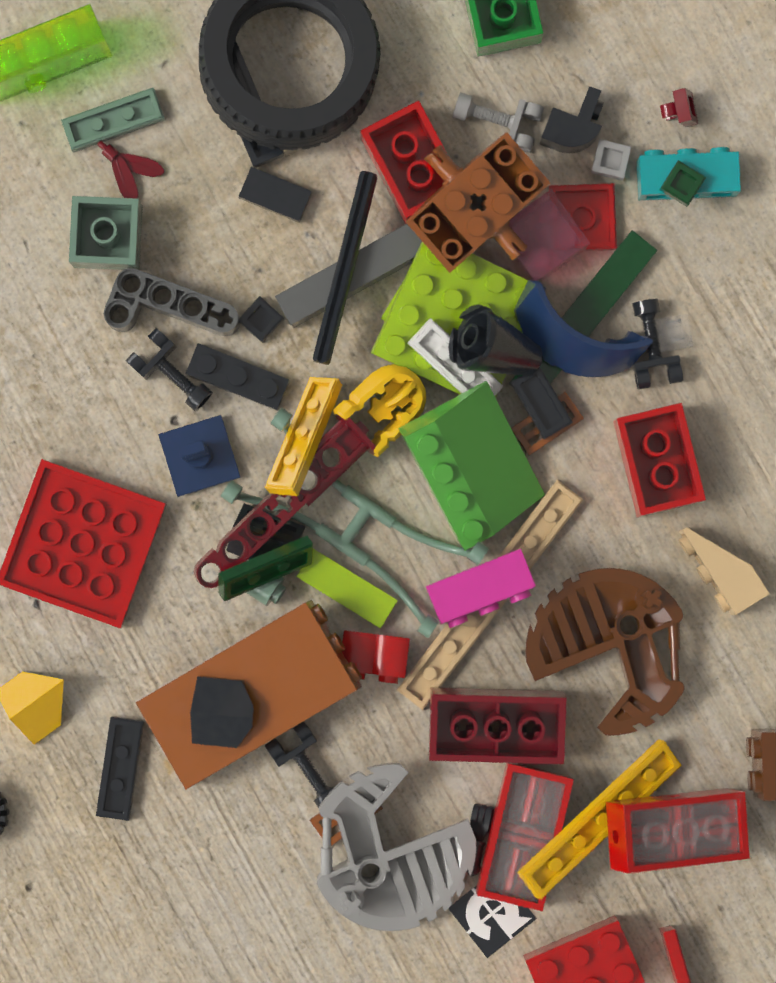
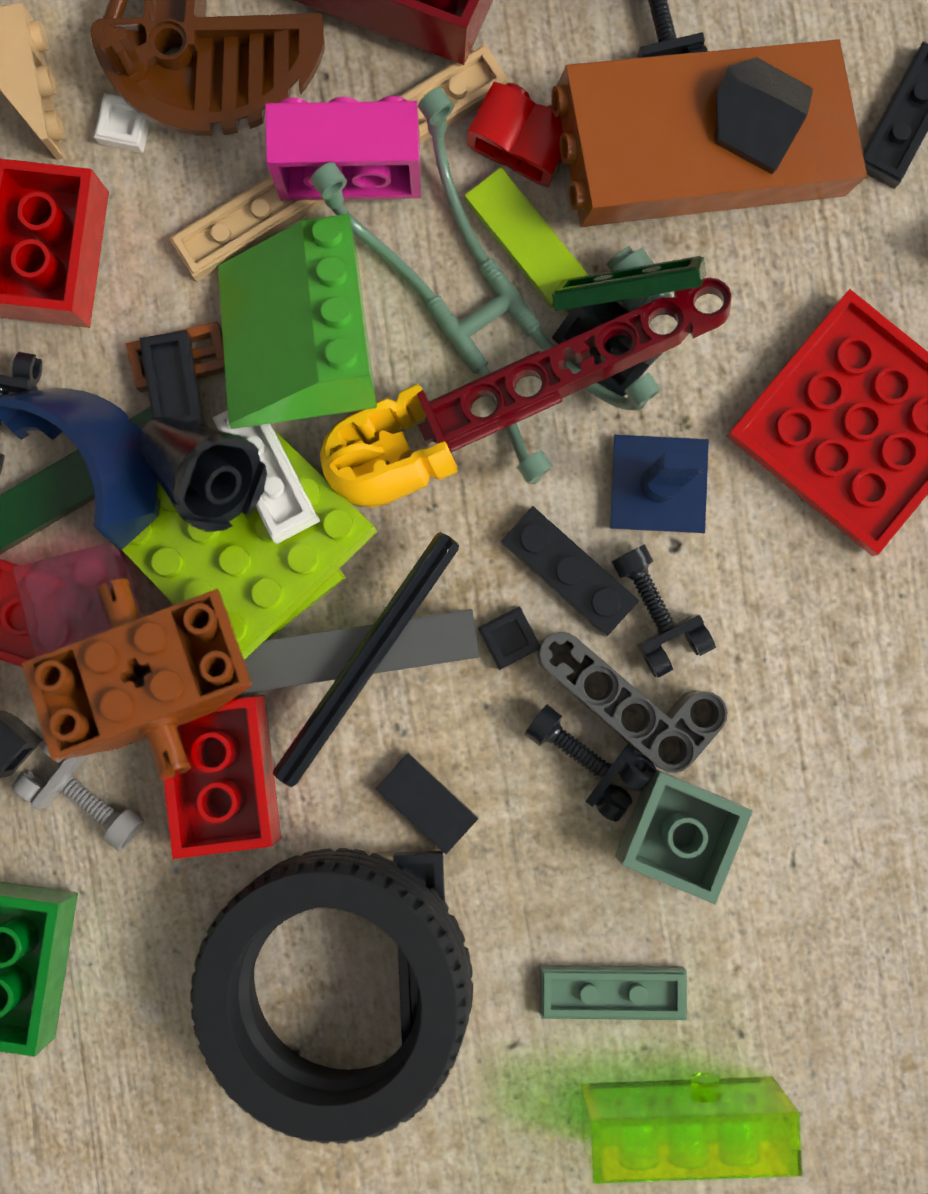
camera: 160 degrees left, 0 degrees up
(125, 164) = (619, 922): dark red piece -> none
(152, 262) = (610, 799): none -> black bar
(303, 436) = (516, 436): yellow tile -> none
(647, 564) = (121, 125): none -> white tile

